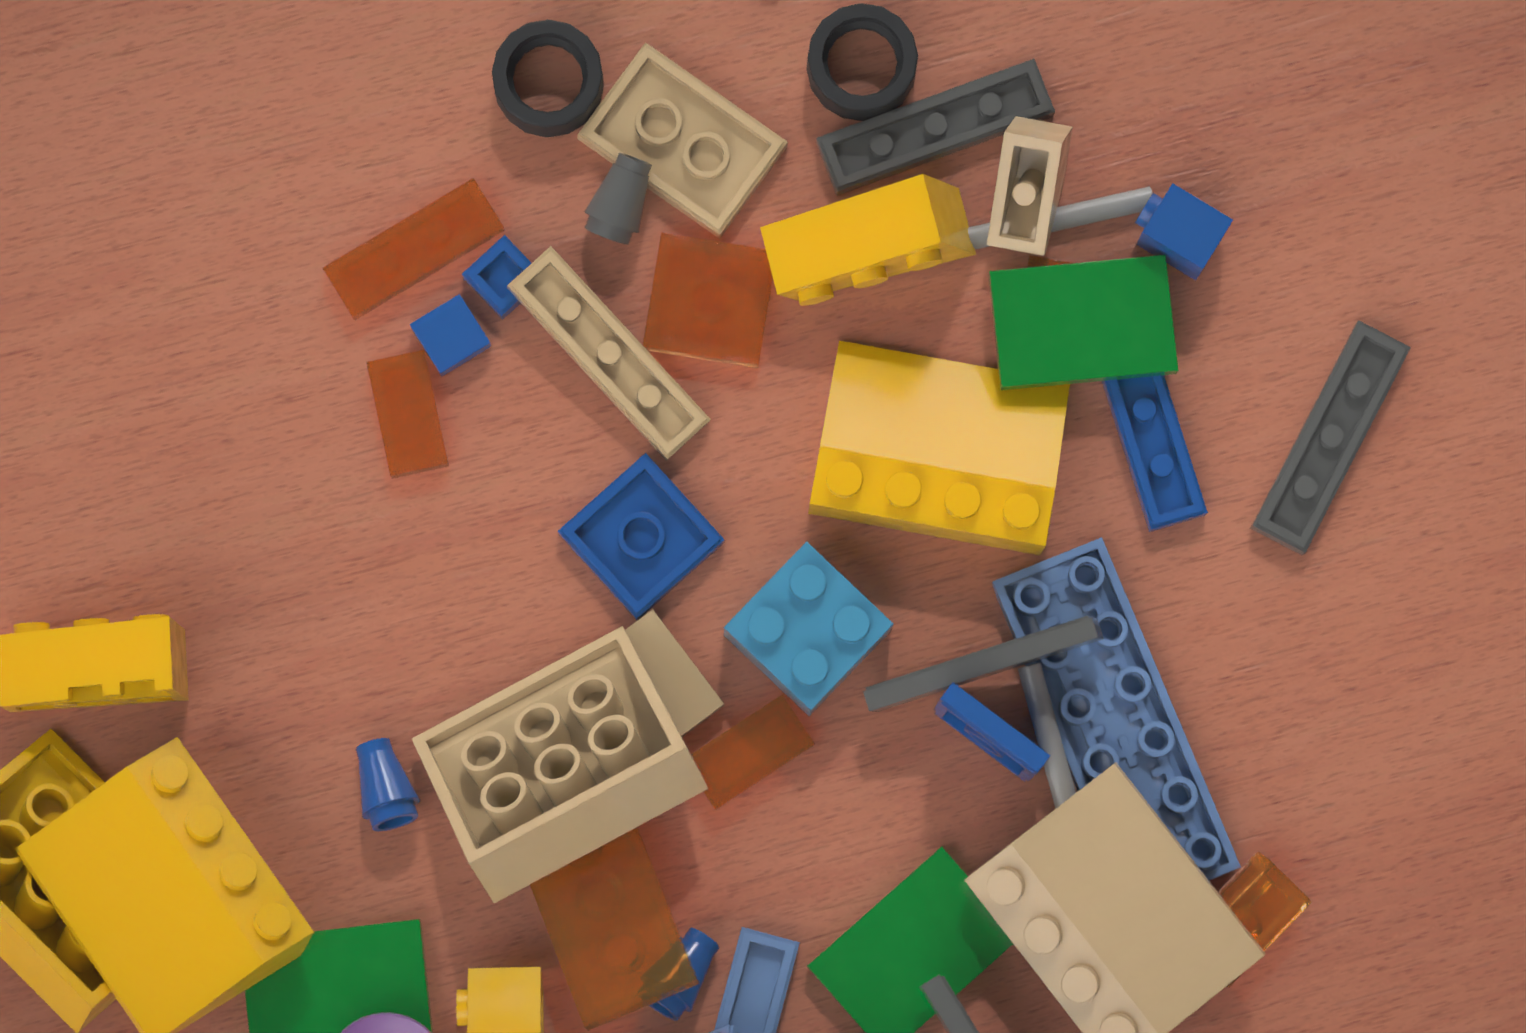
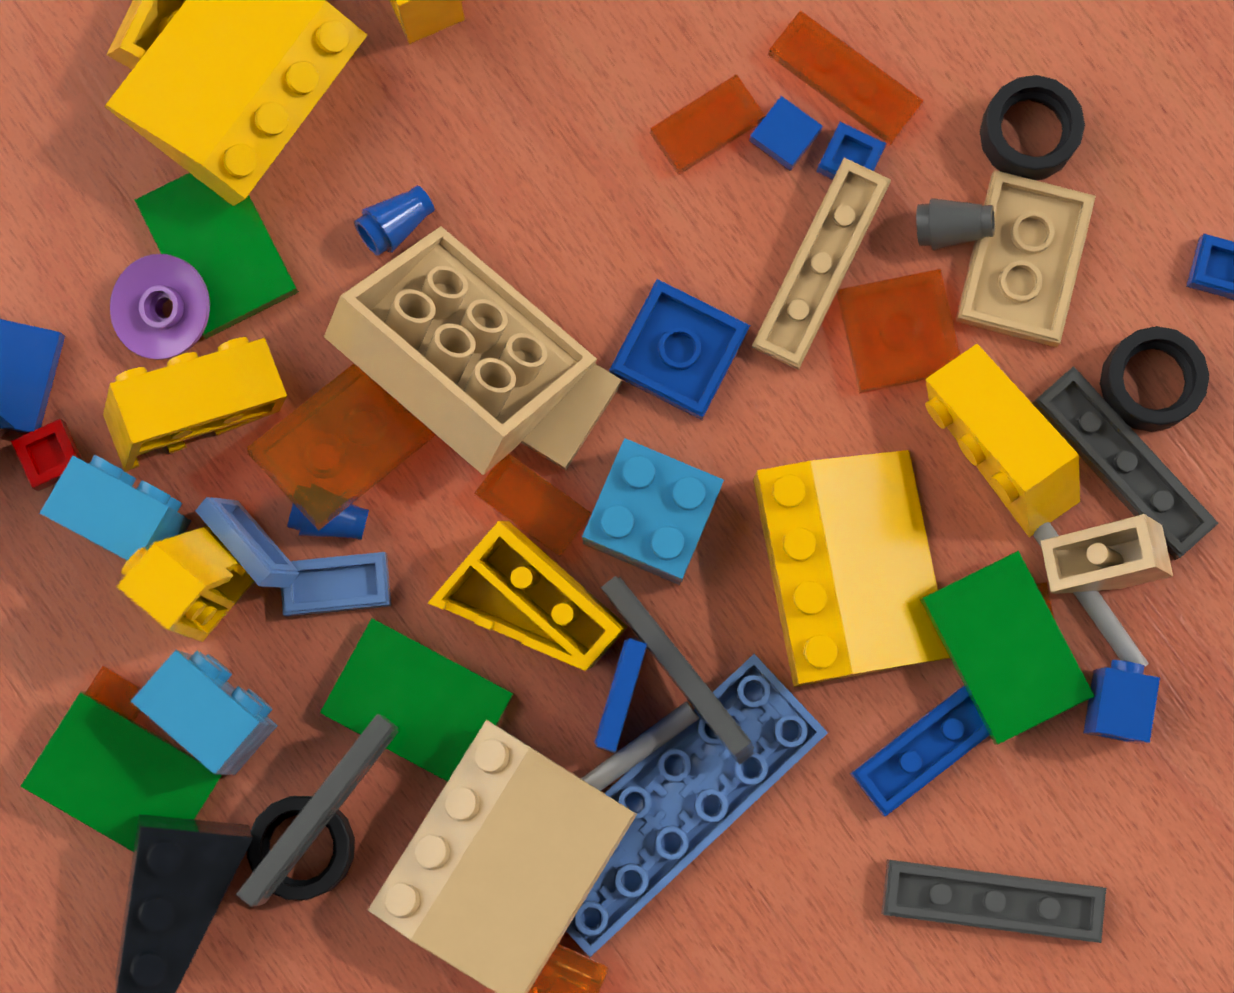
camera: 75 degrees right, 0 degrees up
(853, 789) = (530, 598): none -> yellow wedge

